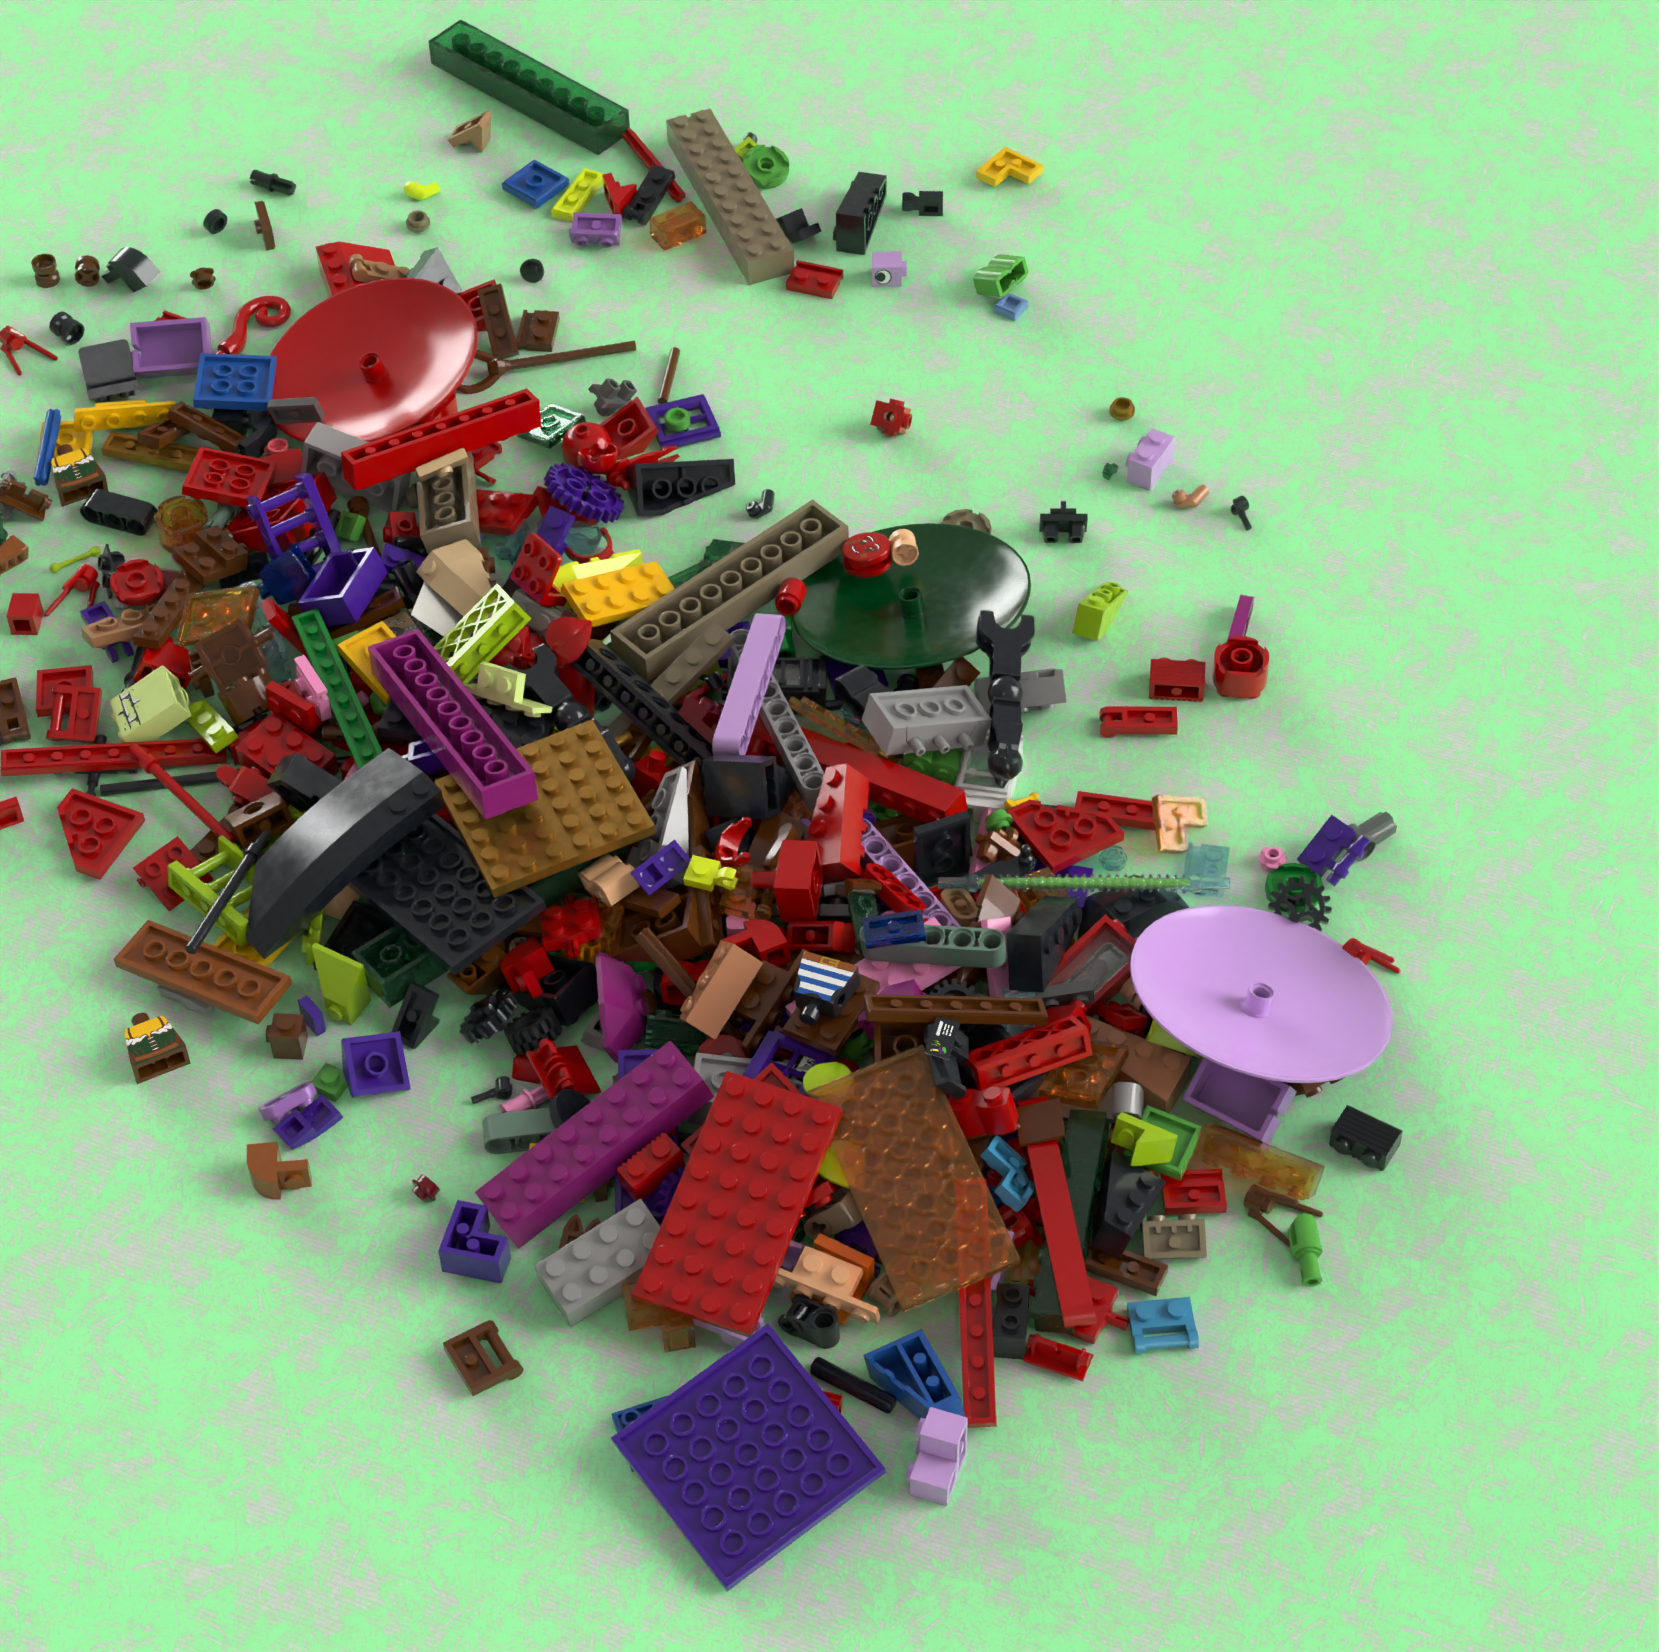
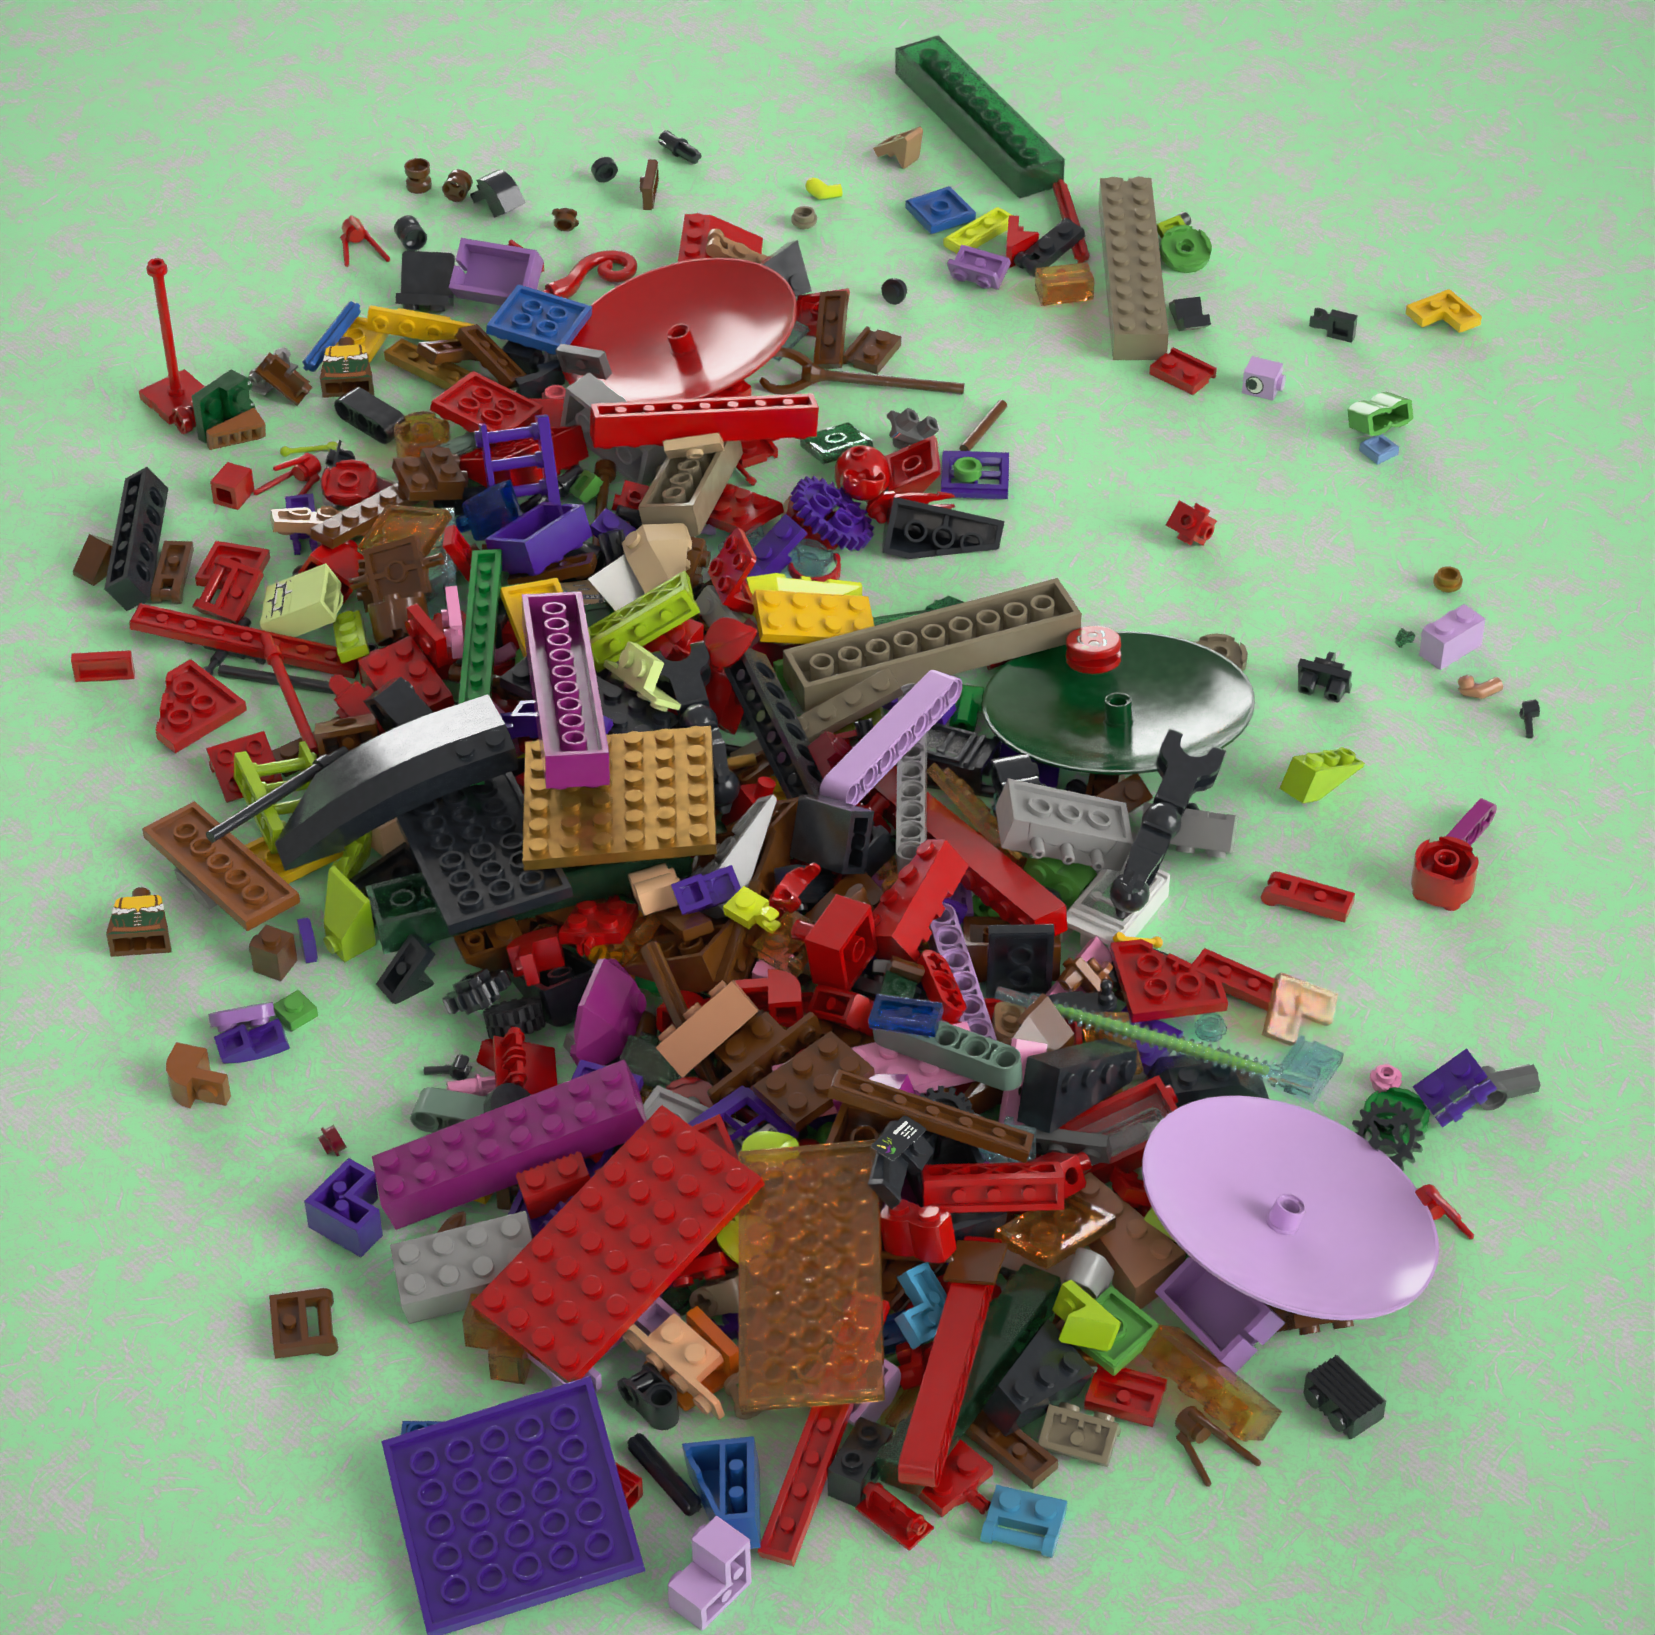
camera: 20 degrees right, 5 degrees down
(374, 1064) = (342, 1004): dark purple slope -> none
(764, 507) = (1014, 579): black arm -> none
(790, 596) = (990, 669): red brick -> none
(823, 986) = (808, 1053): torso -> none
(859, 213) = (1260, 315): black wedge -> none
(903, 547) = (1134, 651): light nougat wheel -> none
(997, 820) = (1099, 949): bright green plate -> none
(1177, 679) = (1370, 866): red brick -> none
(1306, 1248) = (1220, 1491): bright green arm -> none

